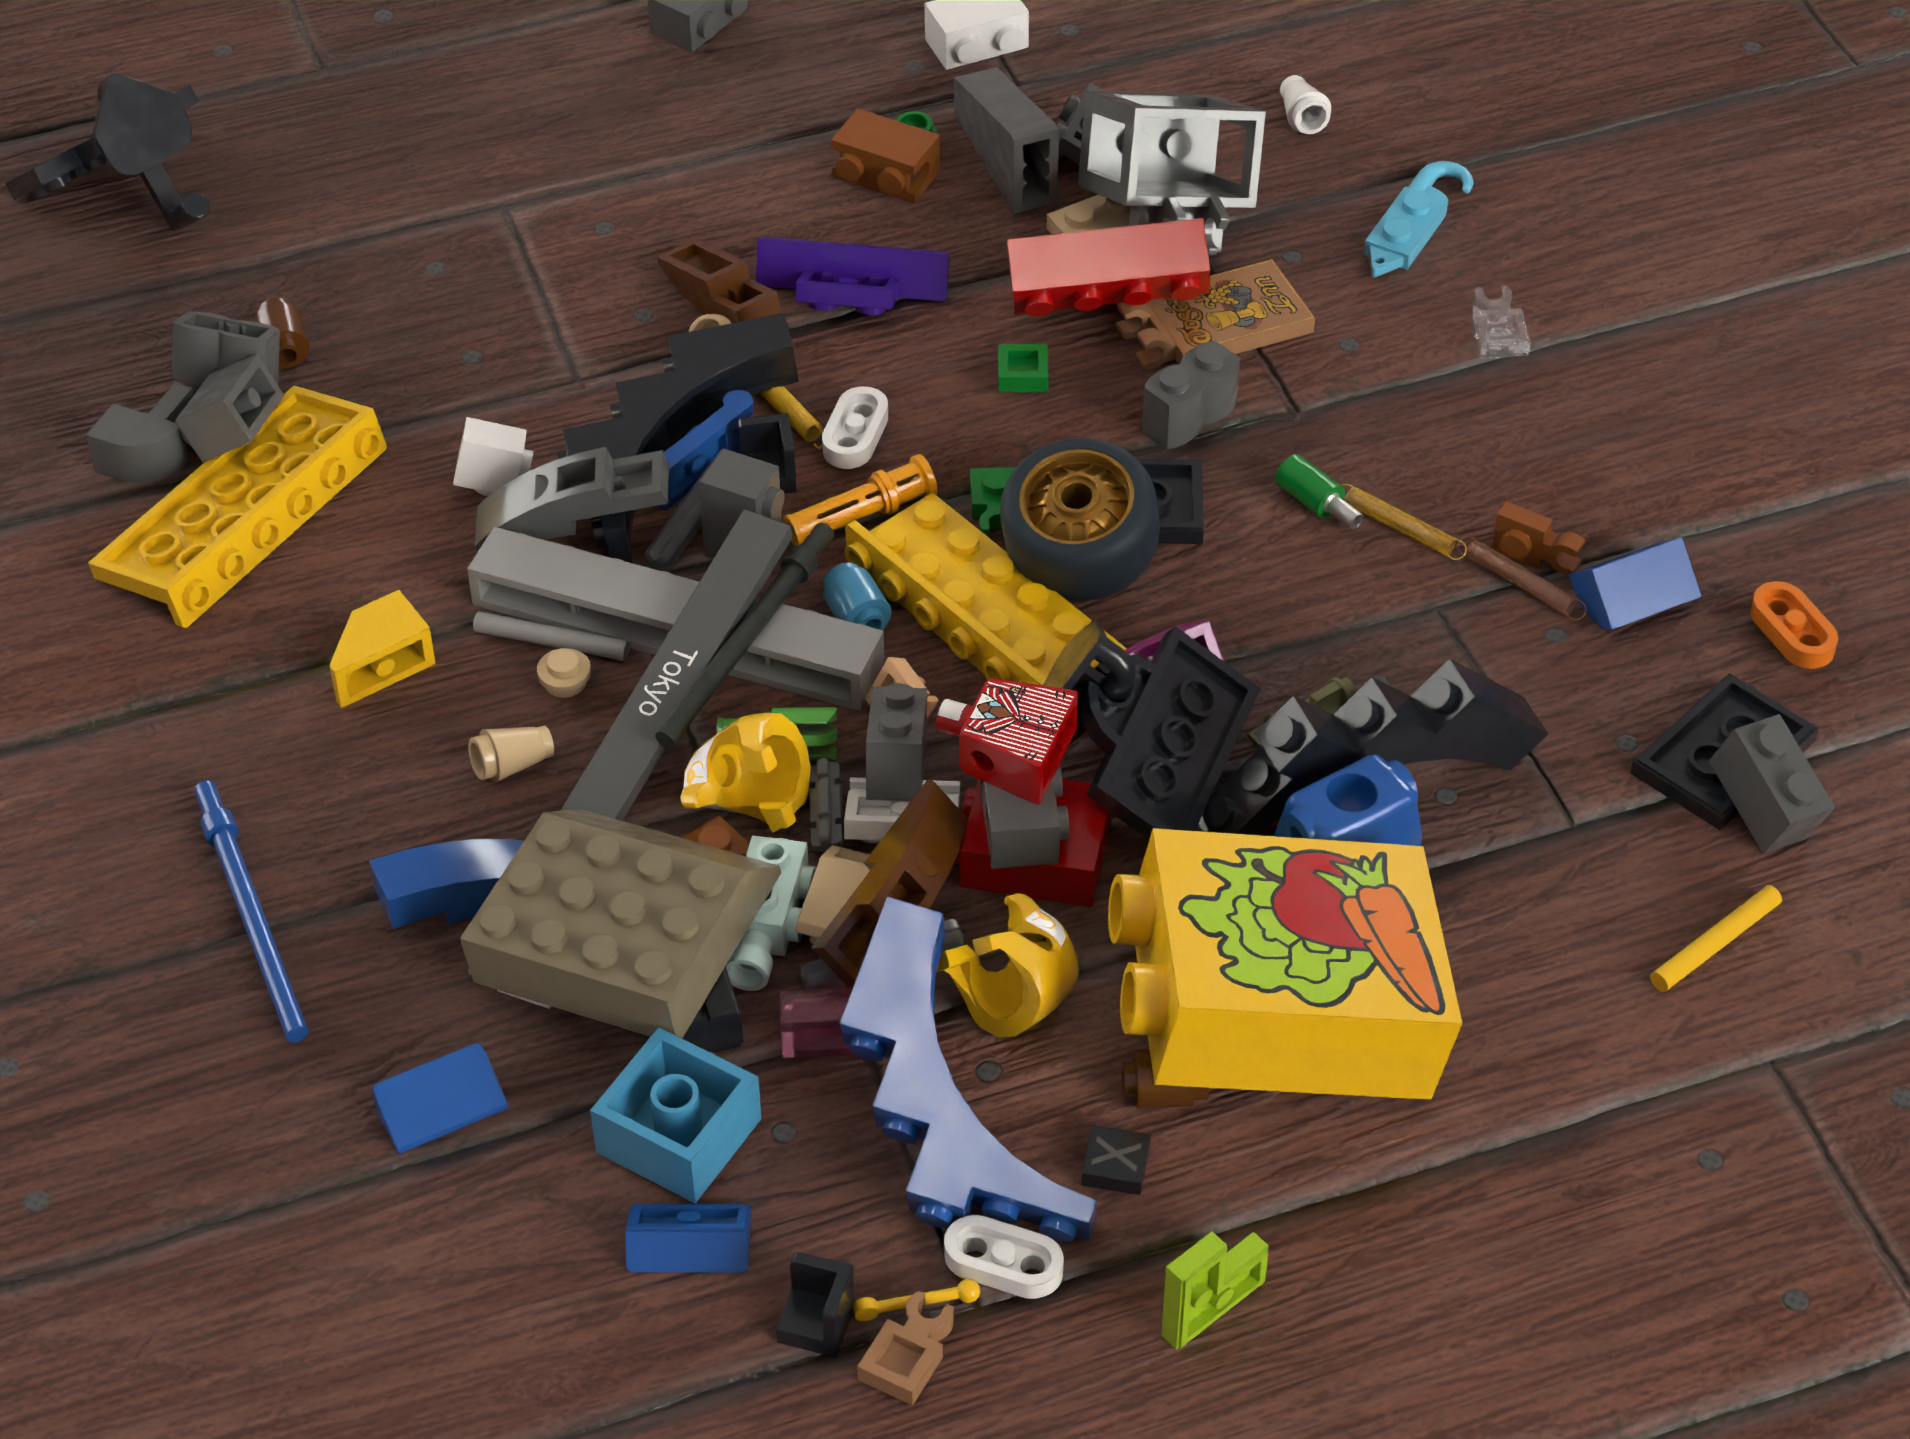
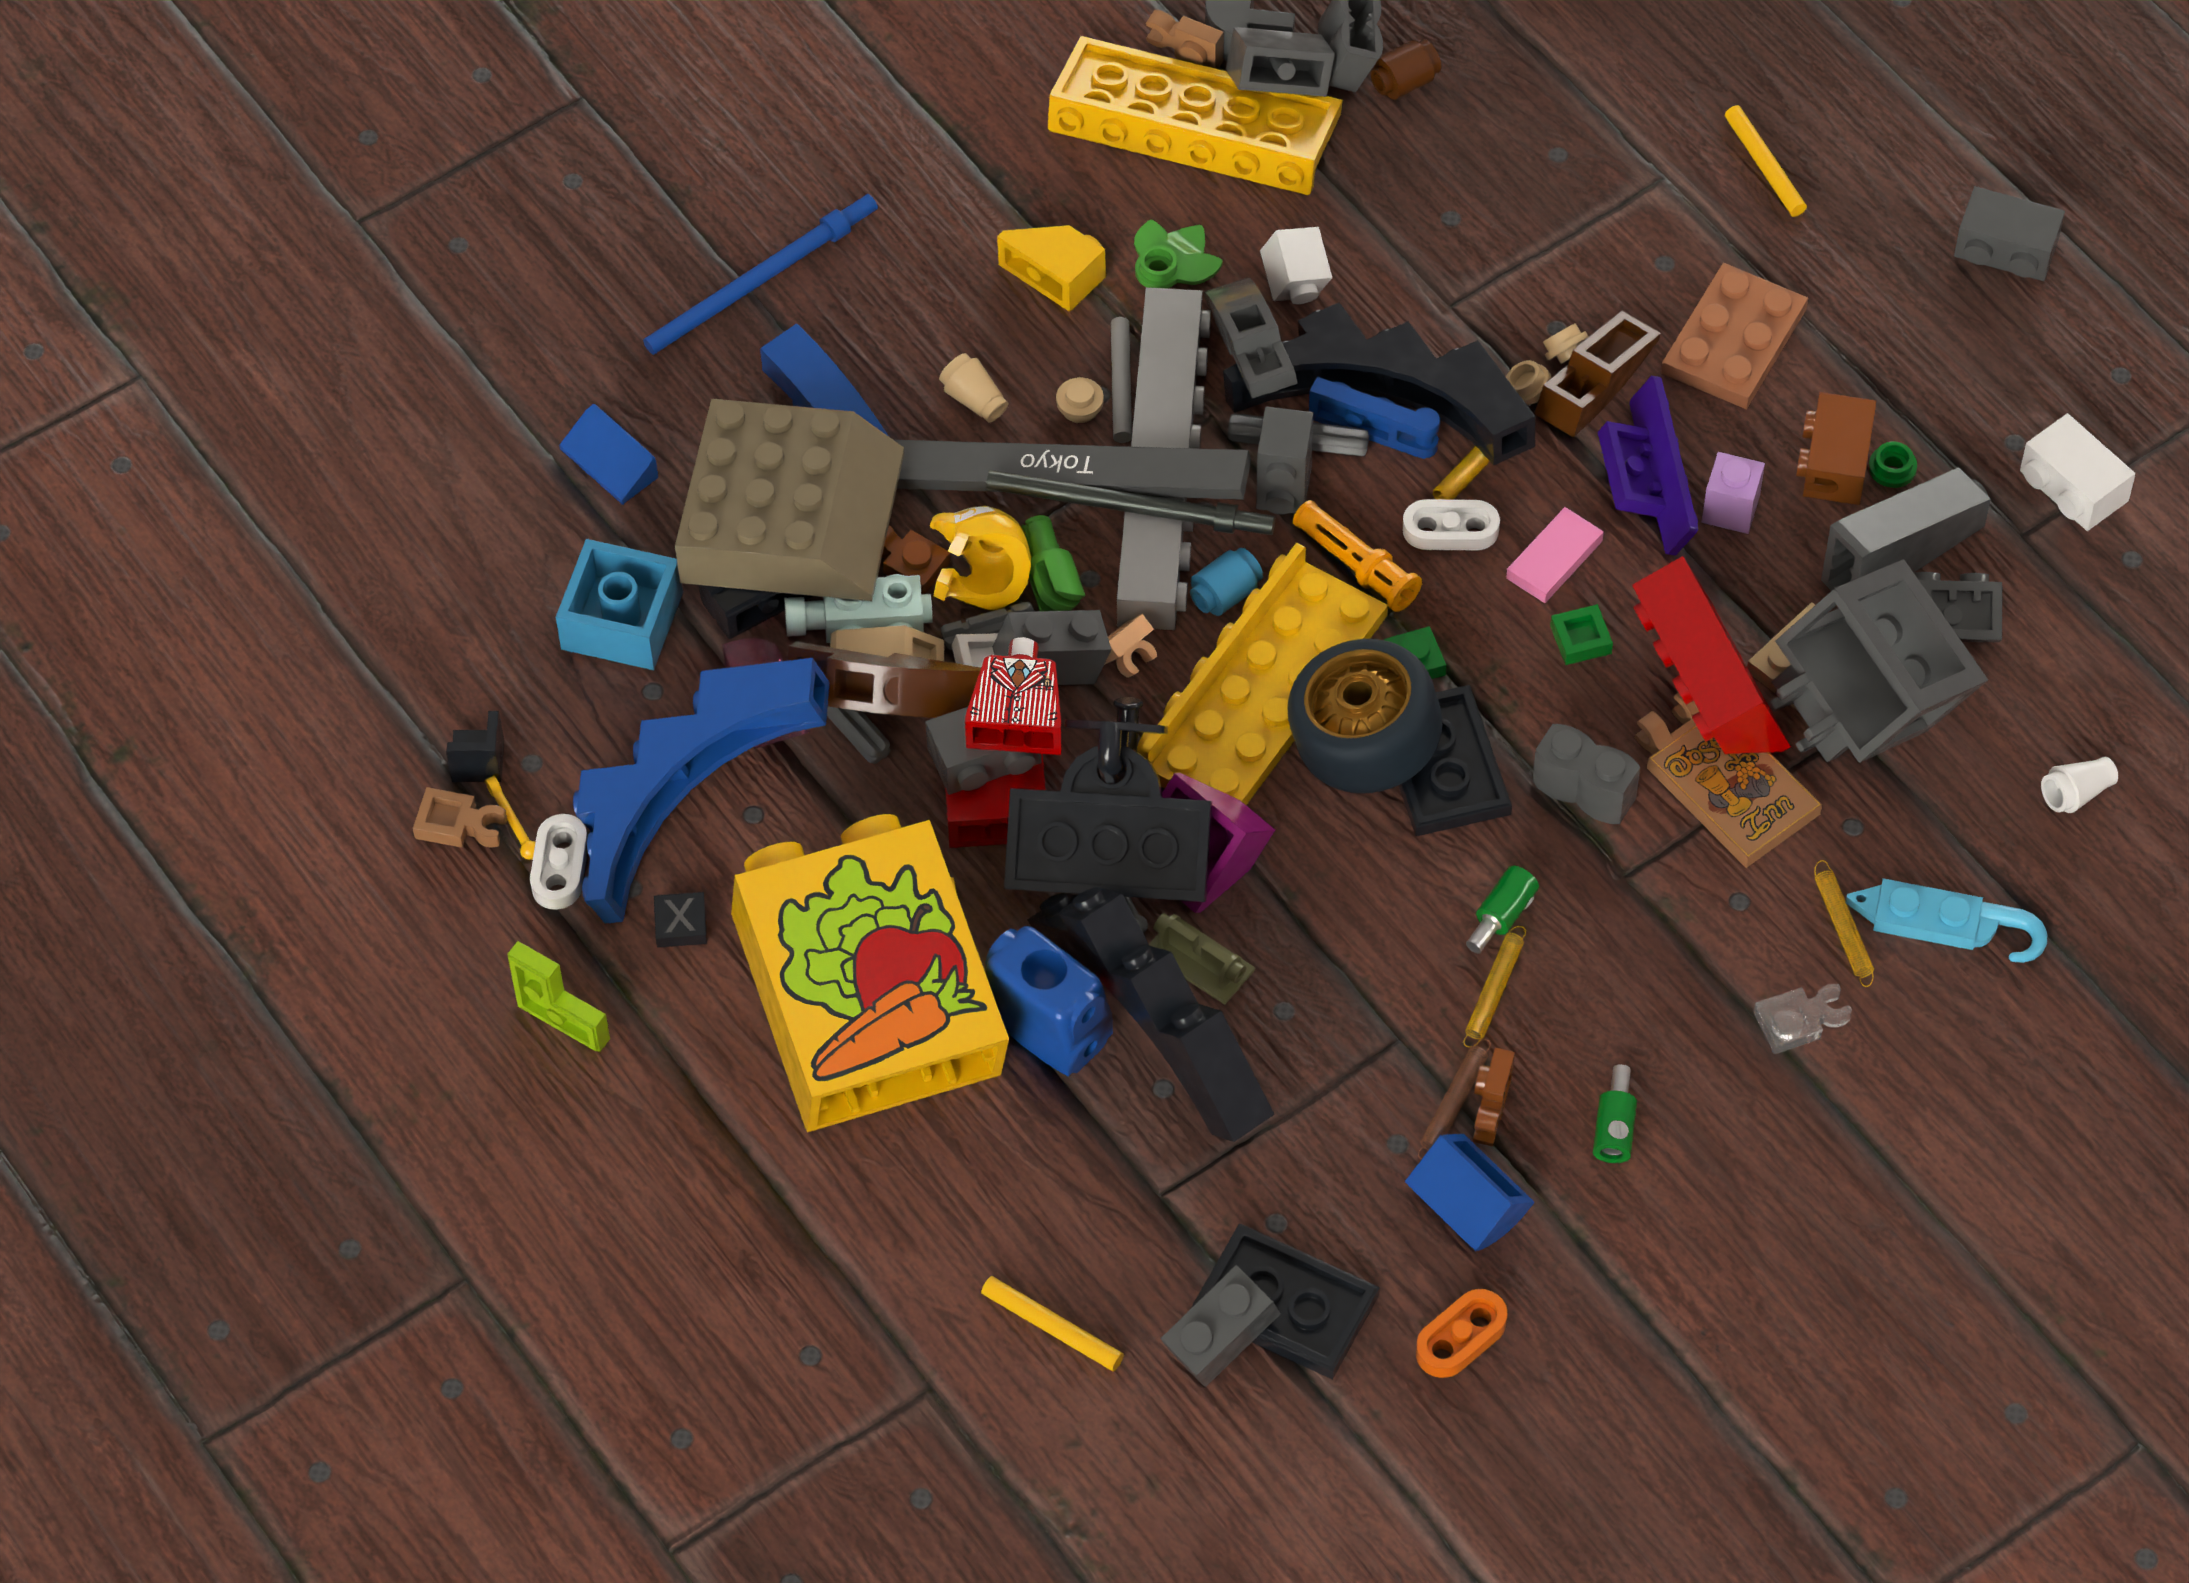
camera: 75 degrees right, 10 degrees up
(147, 482) = (1190, 39): none -> medium nougat plate
(415, 564) = (1176, 254): none -> bright green plate
(524, 133) = (1765, 161): none -> yellow bar
(678, 300) = (1564, 342): none -> tan plate
(688, 1237) = (531, 654): blue slope -> none
(717, 198) = (1734, 335): none -> nougat plate
(770, 441) = (1383, 472): black panel -> none
(909, 221) = (1733, 492): none -> lavender brick
(917, 369) = (1554, 555): none -> bright pink tile
(1034, 981) = (820, 804): yellow piece -> none
(1399, 277) = (1851, 920): none -> yellow piece
(1577, 467) = (1615, 1119): none -> green piece

